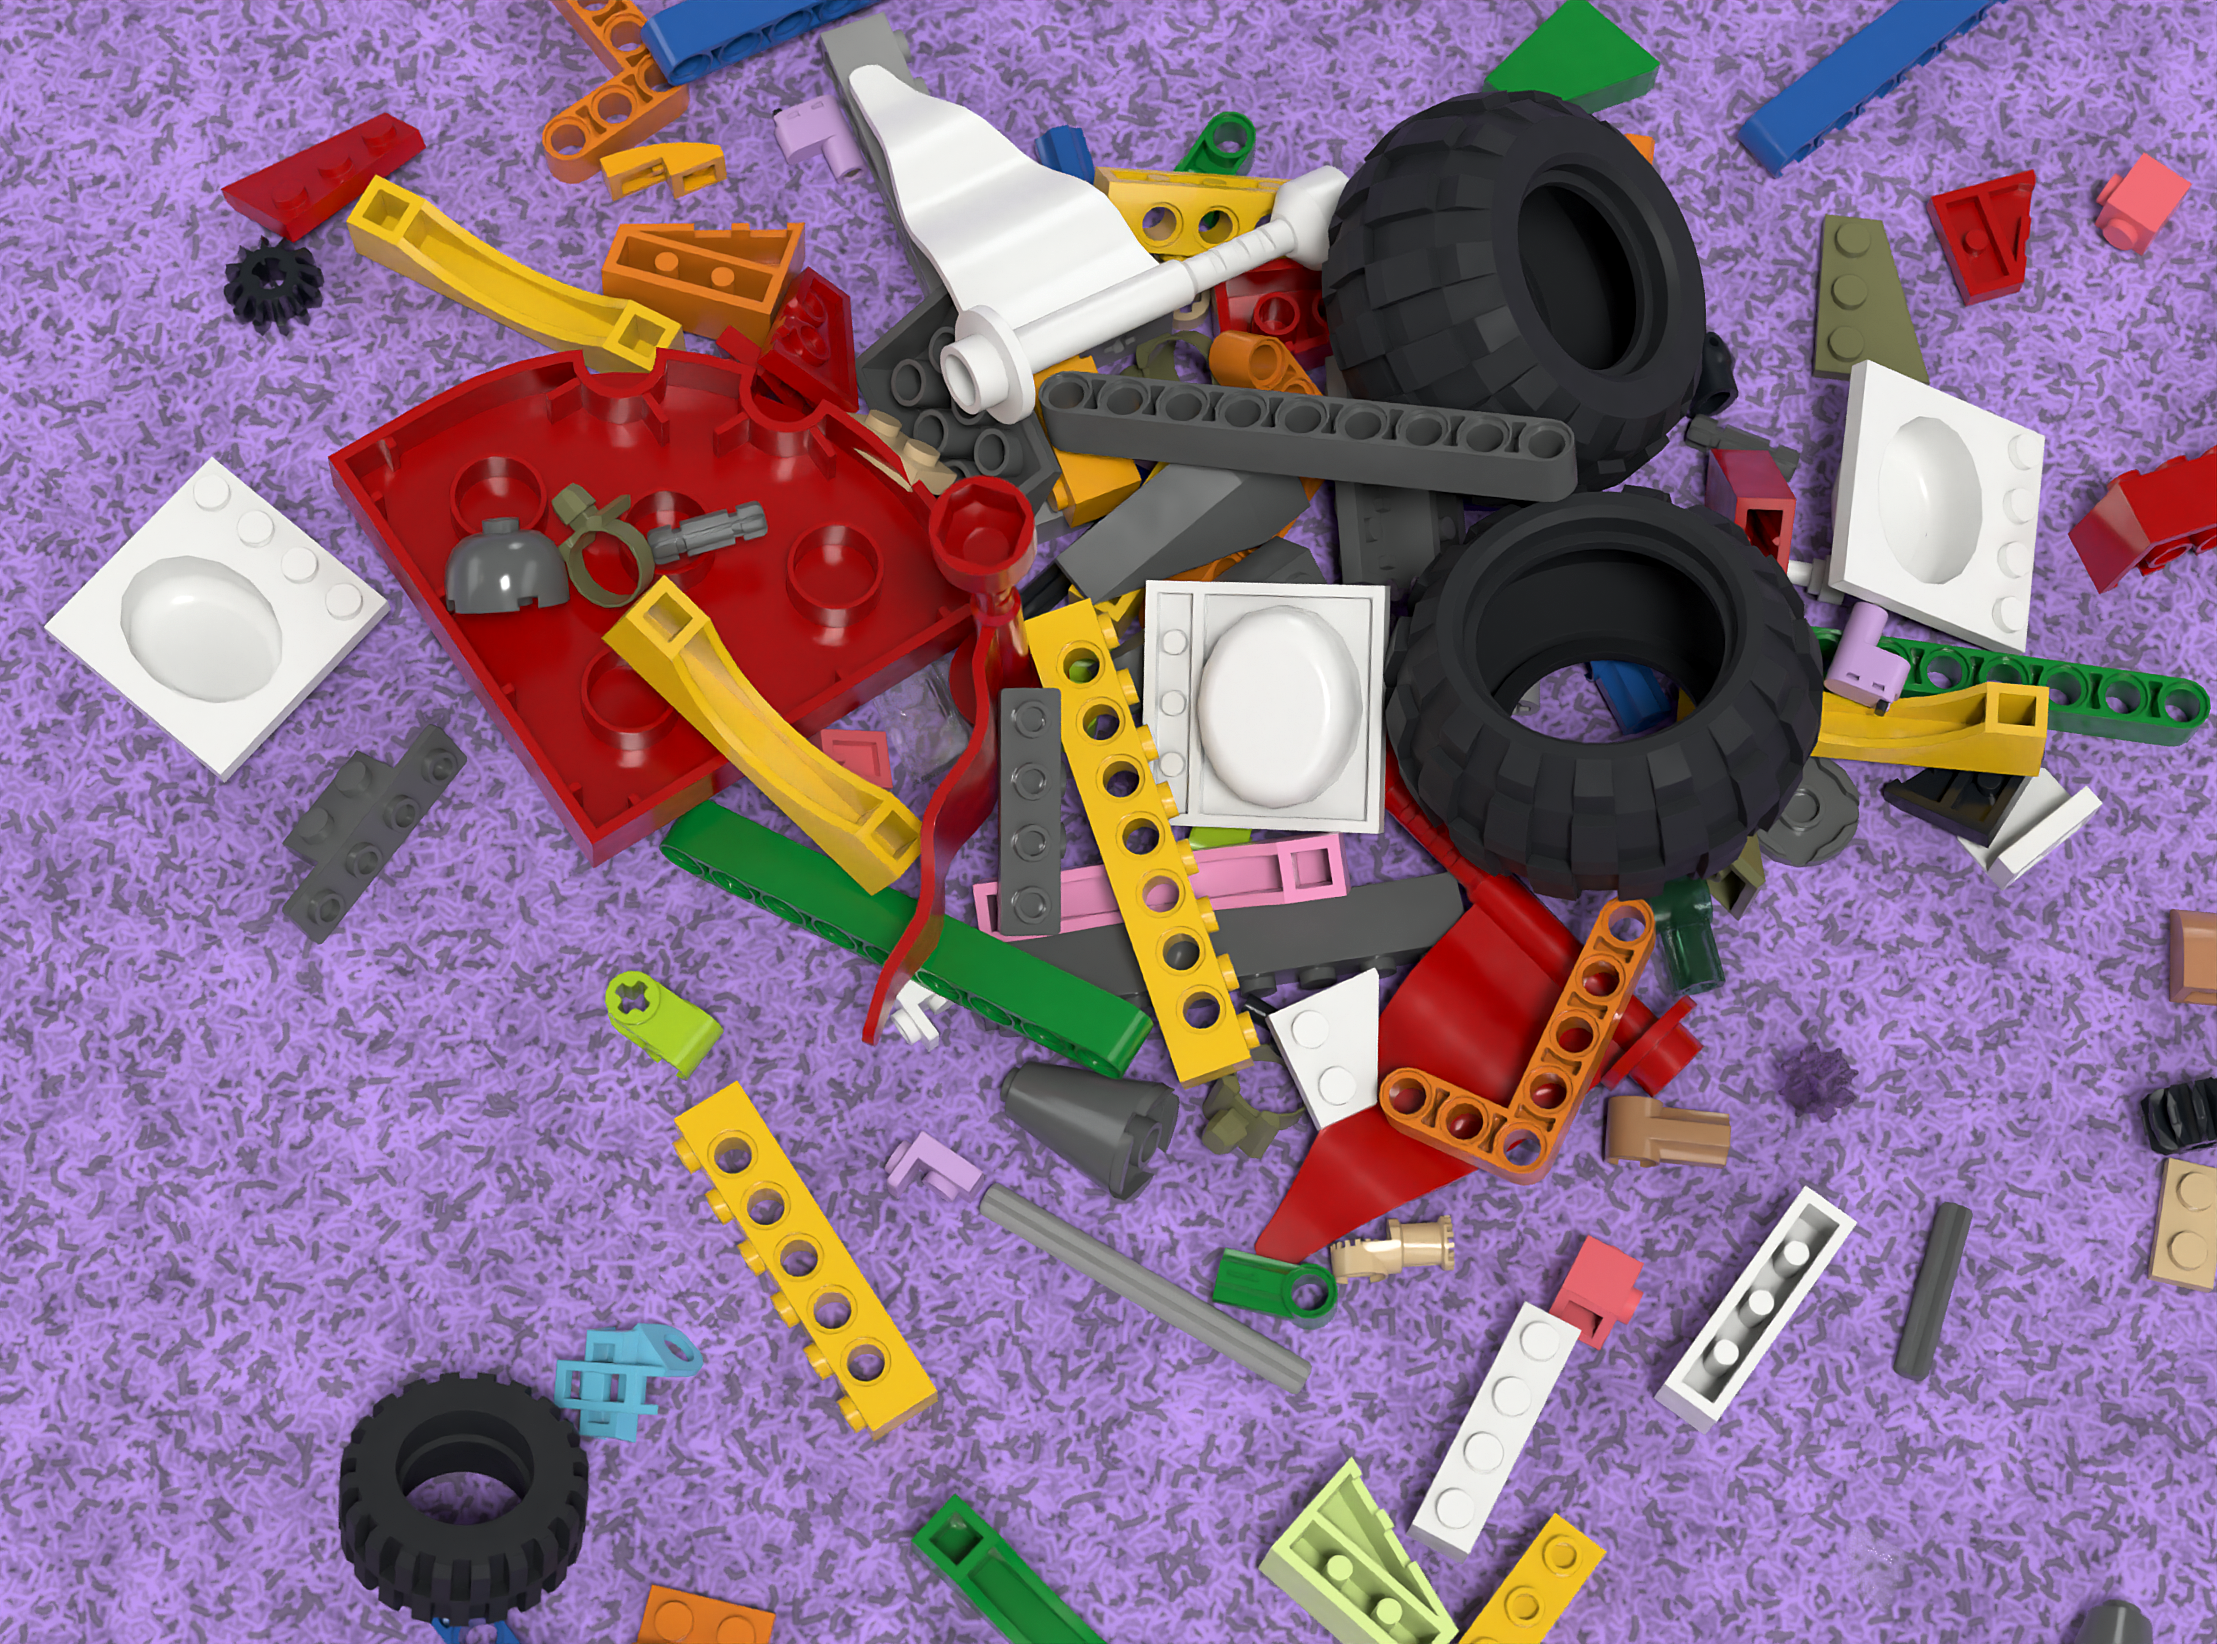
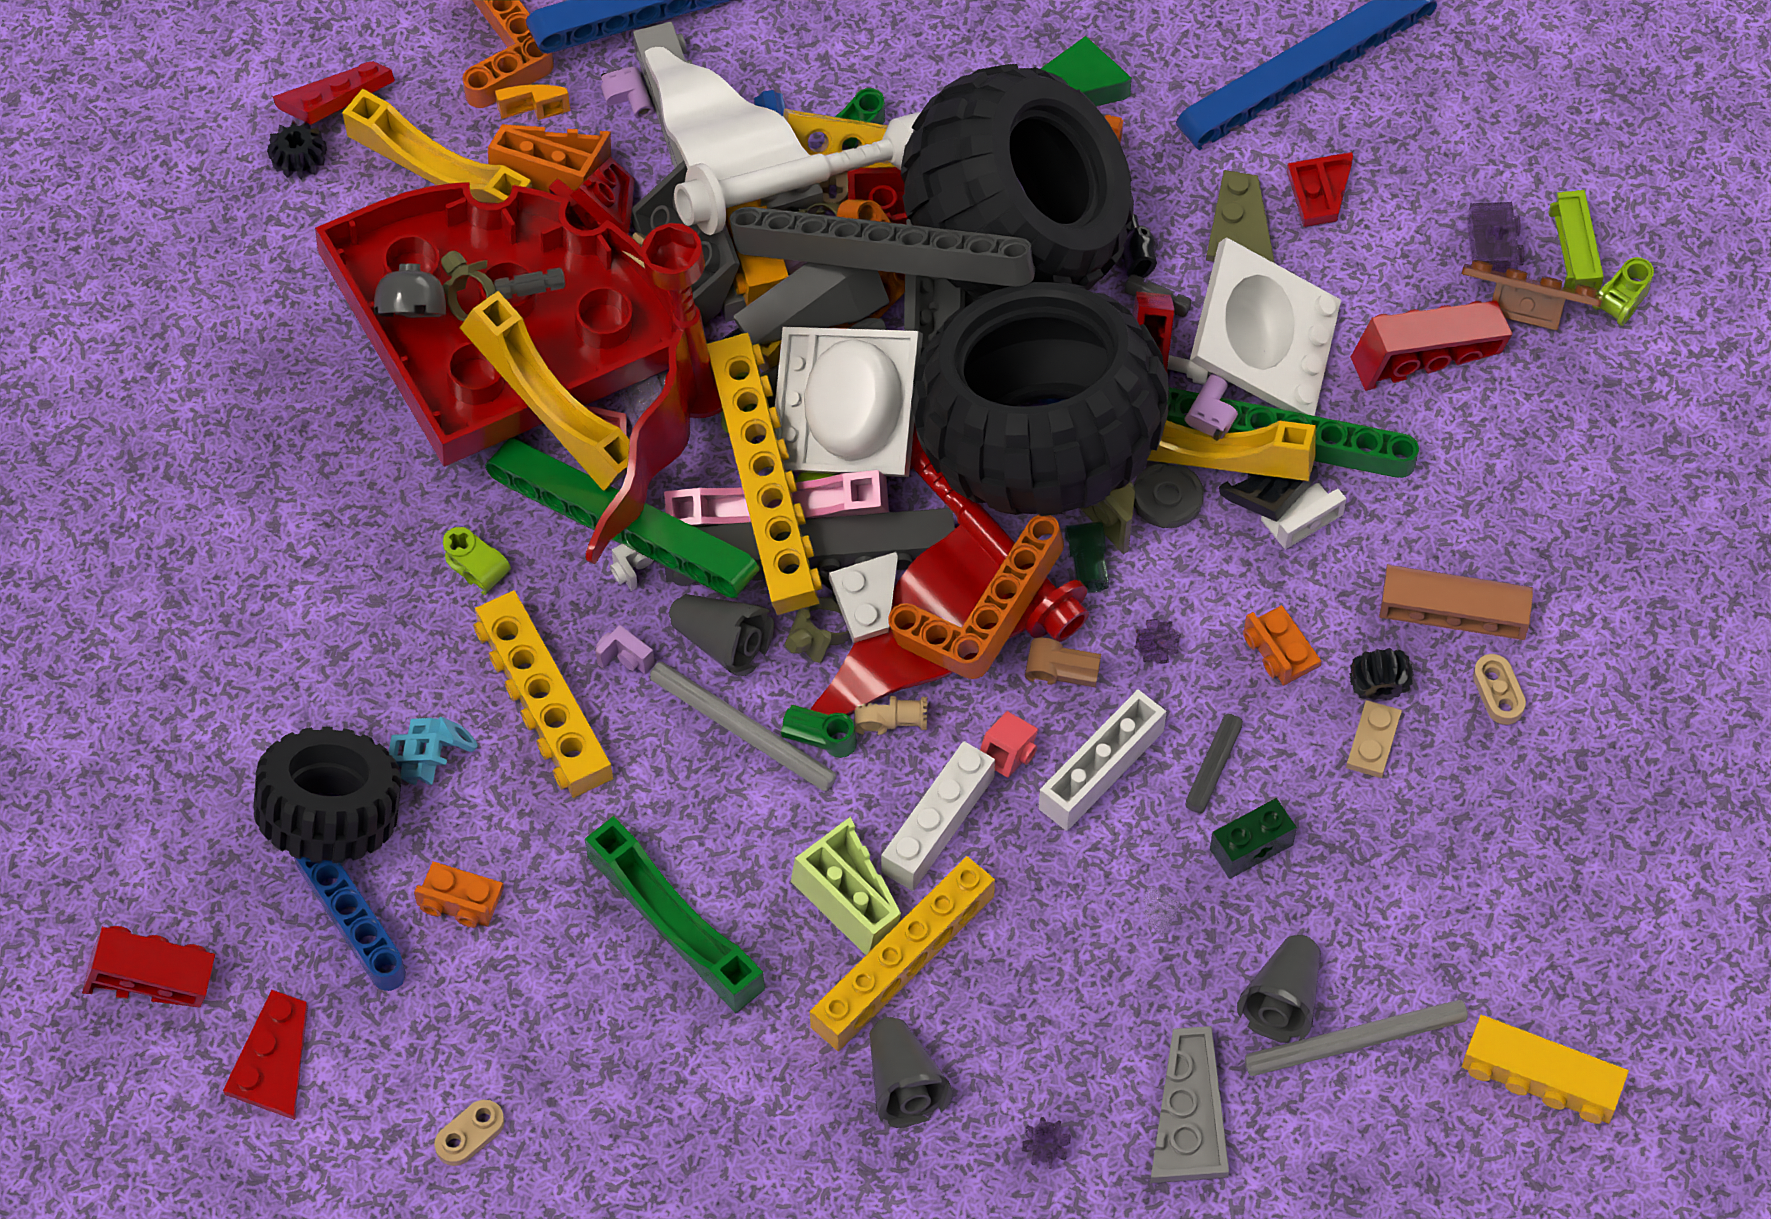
camera: 10 degrees right, 10 degrees down
(225, 608) = (242, 321): white piece -> none
(361, 826) = (314, 443): dark grey bracket -> none
(1029, 811) = (700, 449): dark grey bracket -> none
(2017, 1429) = (1253, 838): none -> dark green brick
(2018, 1068) = (1281, 644): none -> orange bracket
(2140, 204) = (1415, 175): coral brick -> none

